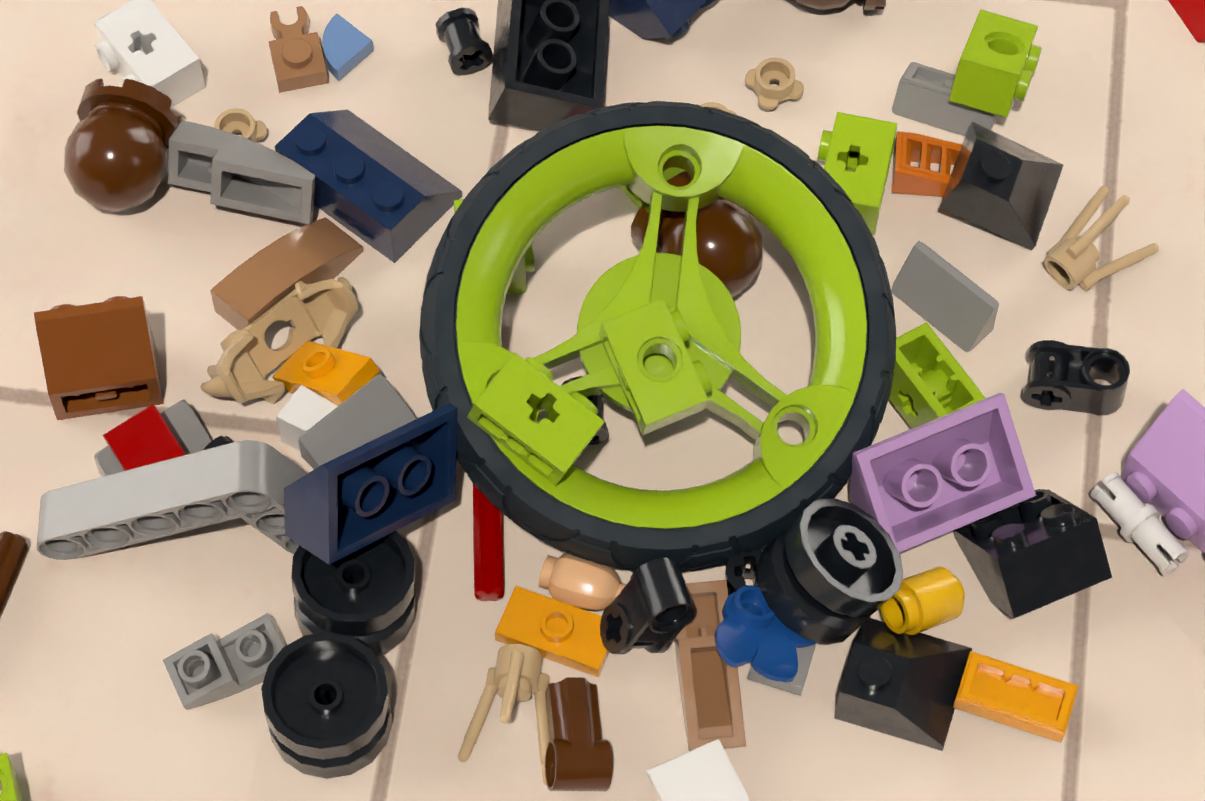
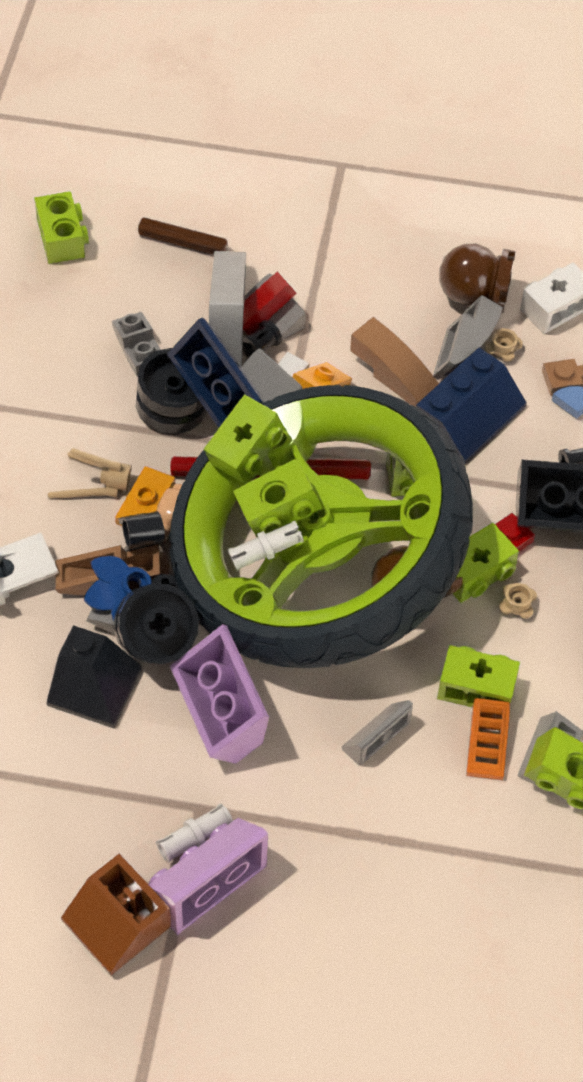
camera: 90 degrees right, 5 degrees down
(99, 357) = (332, 272): dark orange slope -> none
(246, 359) = (331, 342): tan piece -> none
(327, 704) = (99, 378): black wheel -> none
(576, 753) = (58, 501): reddish brown piece -> none
(731, 386) = (265, 545): none -> white pin
(774, 71) = (559, 632): tan plate -> none
(924, 602) = (141, 690): yellow brick -> none
(928, 378) = (299, 703): lime brick -> none
(1001, 186) = (472, 771): black slope -> none
(1015, 696) = (73, 743): light orange plate -> none
(1035, 552) = (173, 761): black slope -> none
(1073, 378) = (309, 799): black piece -> none
(1075, 259) = (410, 816): tan plant -> none

